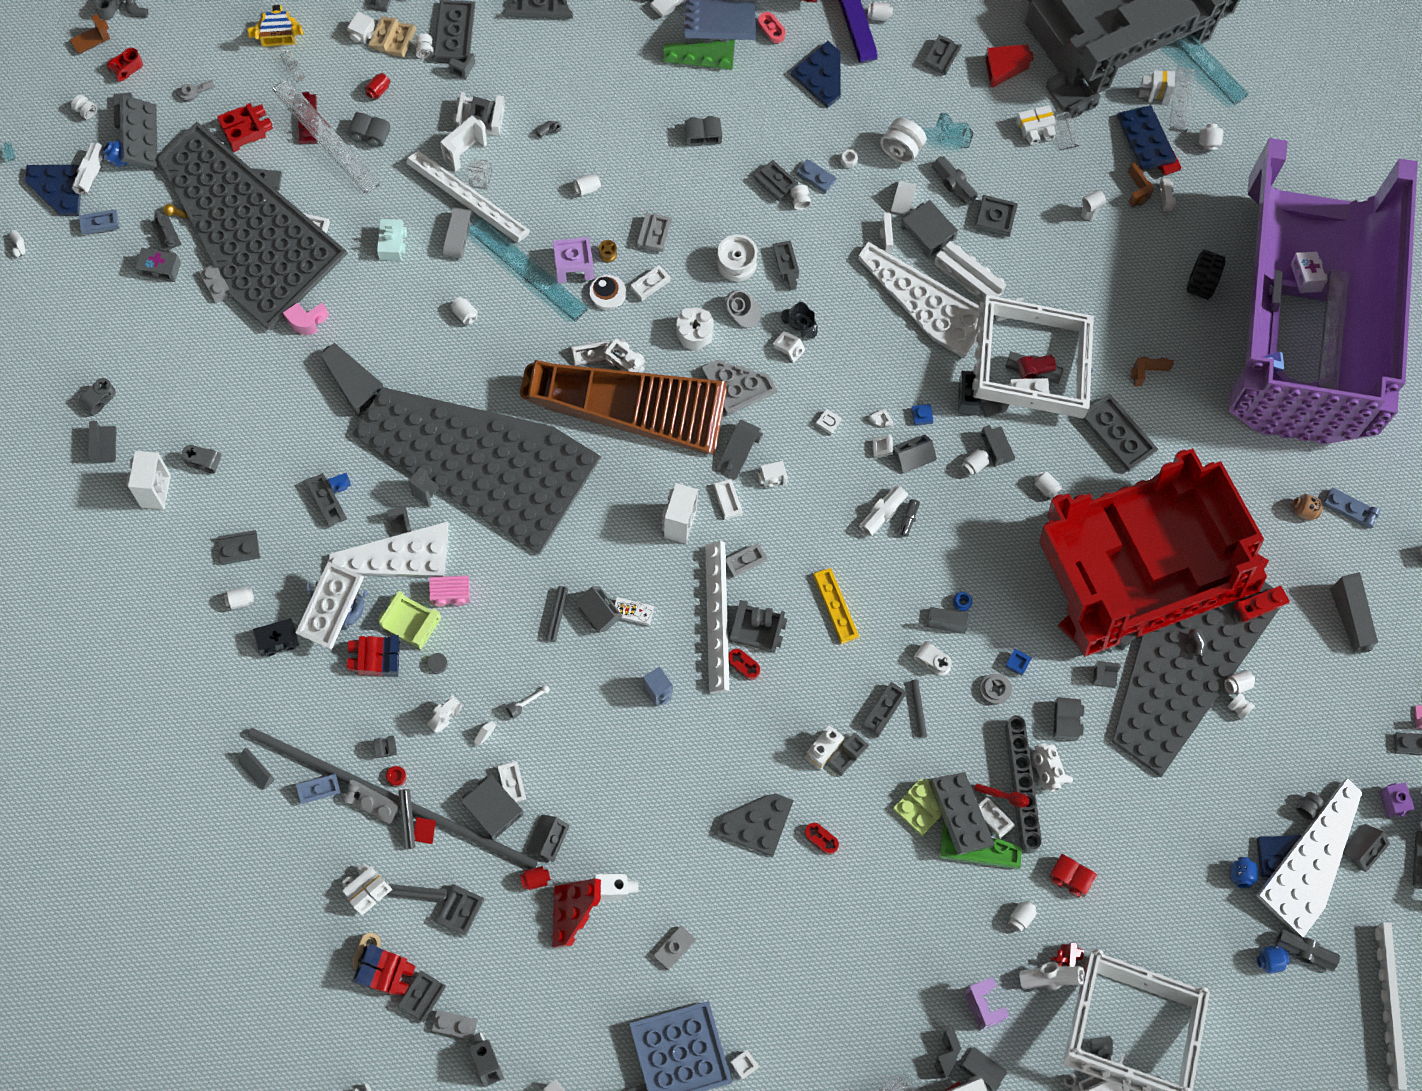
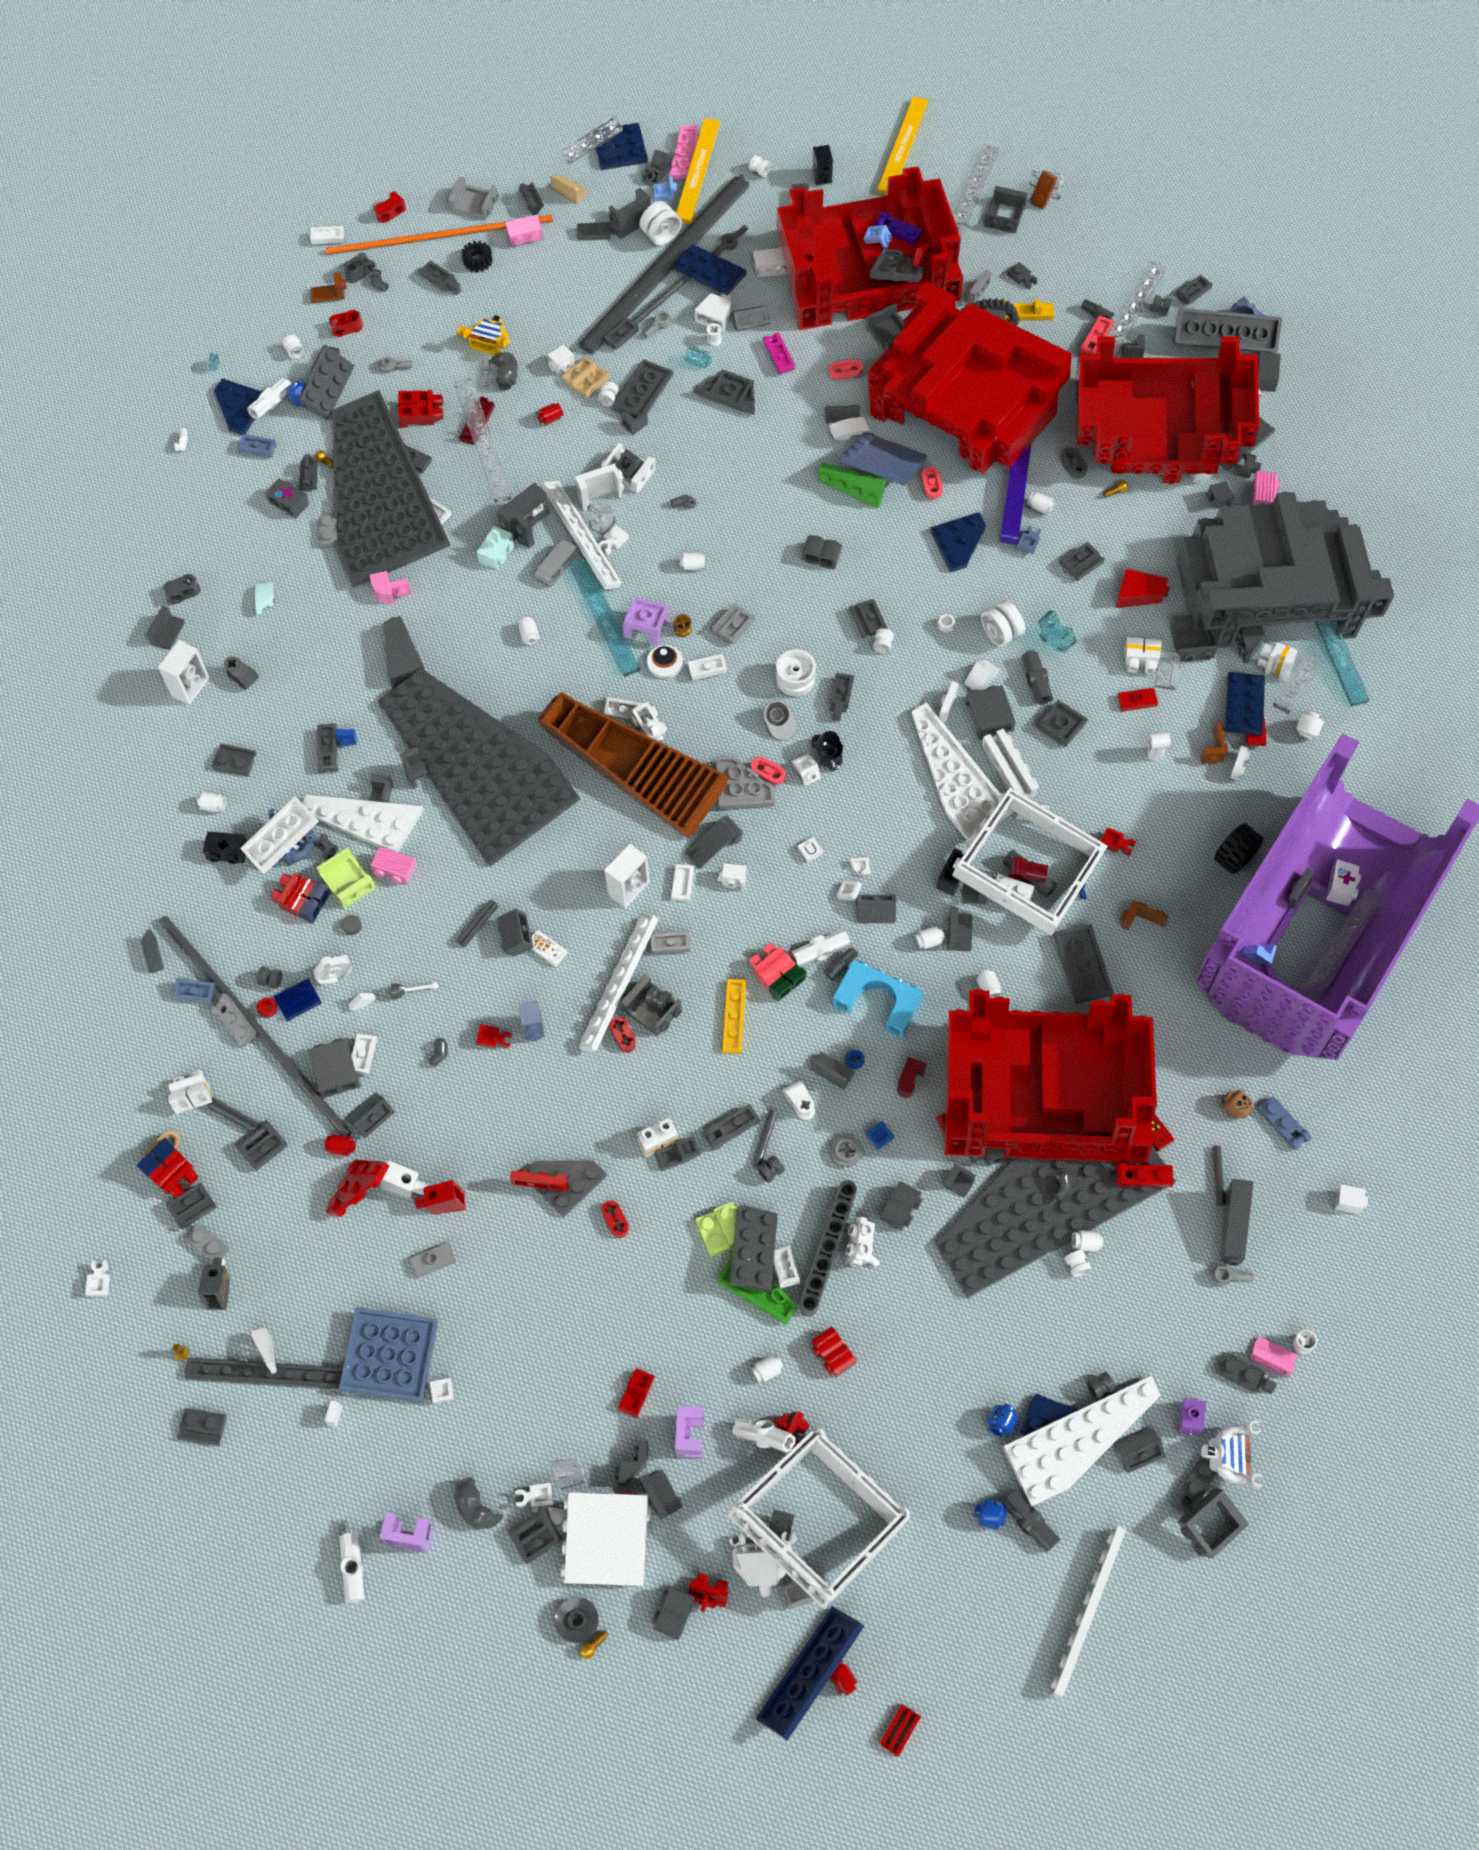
camera: 30 degrees right, 5 degrees down
(185, 372) = (263, 596): none -> light aqua slope
(313, 56) = (506, 371): none -> dark grey animal
(369, 129) = (524, 448): dark grey brick -> none
(375, 597) = (327, 848): none -> dark grey bush
(402, 197) = (523, 513): none -> dark grey brick
(406, 819) = (255, 1047): dark grey axle -> none
(422, 756) = (297, 999): none -> clear blue plate
(424, 830) = (266, 1064): red sticker -> none
(500, 188) = (613, 538): none -> white plate
(584, 749) = (441, 1052): none -> dark grey arm
(623, 717) = (489, 1036): none -> red plate
(664, 884) = (442, 1198): none -> red torso
(694, 328) = (726, 720): white brick -> none
(740, 833) = (540, 1180): none -> red plate
(755, 360) = (769, 770): none -> coral plate
(816, 176) = (908, 628): sand blue plate -> none
(856, 549) = (777, 971): none -> coral hips
(886, 52) = (1029, 541): none -> sand blue plate
(918, 988) = (636, 1393): none -> red slope
(922, 414) = (901, 876): blue plate -> none
(938, 733) = (770, 1169): none -> dark grey wheel
(981, 527) = (862, 977): none -> medium azure arch
(1015, 798) = (811, 1256): red piece -> none
(1017, 595) = (907, 1080): none -> dark red leg
(1051, 168) = (1137, 699): none -> red plate
(1095, 308) = (1115, 841): none -> red plate
(1124, 79) = (1249, 640): none -> dark grey slope
(1319, 577) = (1218, 1175): none -> dark grey bar
(1363, 664) = (1222, 1276): none -> light grey plate

